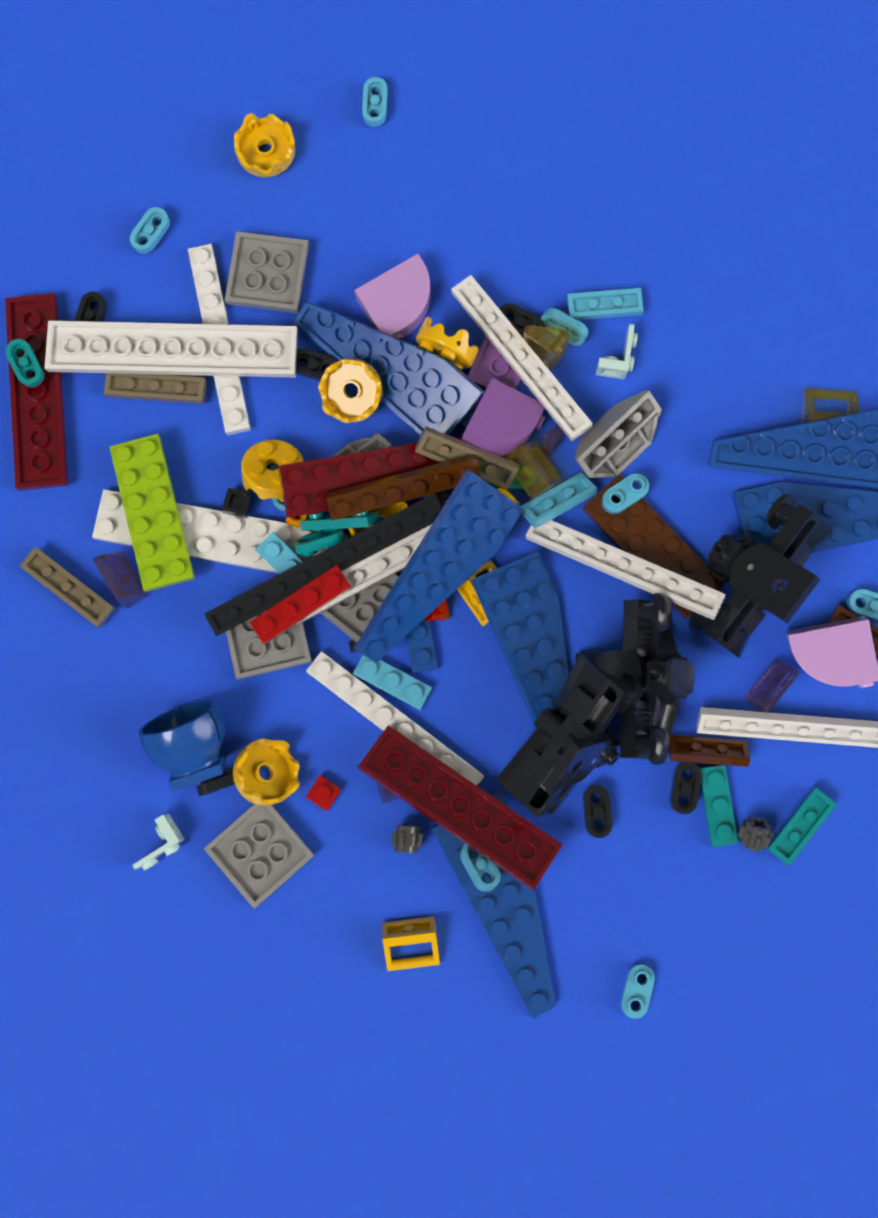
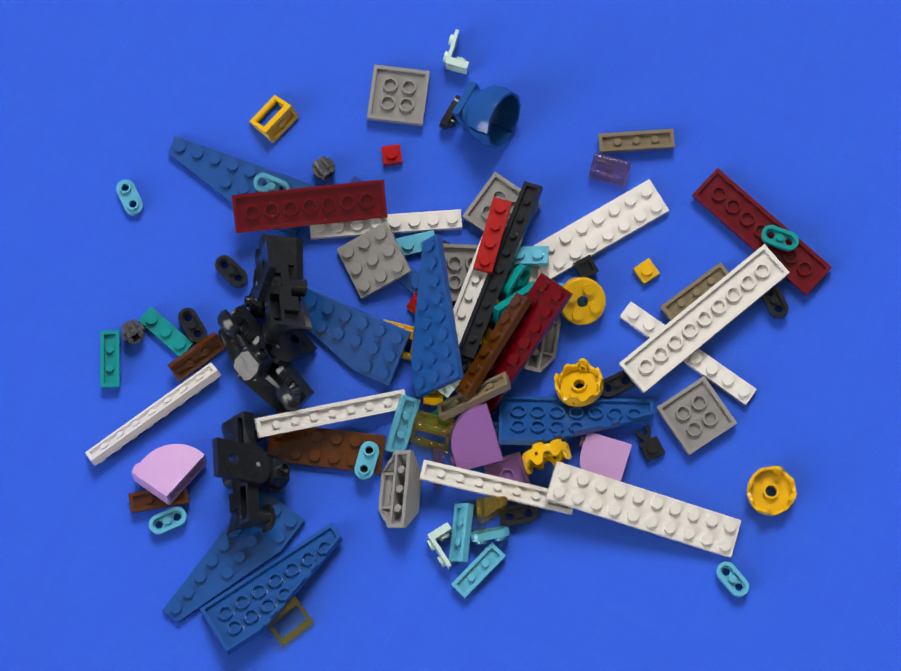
camera: 135 degrees right, 5 degrees down
(149, 231) = (789, 381): medium azure plate -> none
(152, 513) = (627, 219): lime plate -> none
(182, 450) = (646, 271): none -> yellow plate
(282, 769) = (422, 144): yellow plate -> none
(336, 282) = (650, 446): none -> black plate
(402, 225) = (643, 509): none -> white plate
(440, 692) = (374, 260): none -> light grey plate
(589, 351) = (461, 533): none -> medium azure plate
(771, 685) = (190, 423): clear purple plate -> none

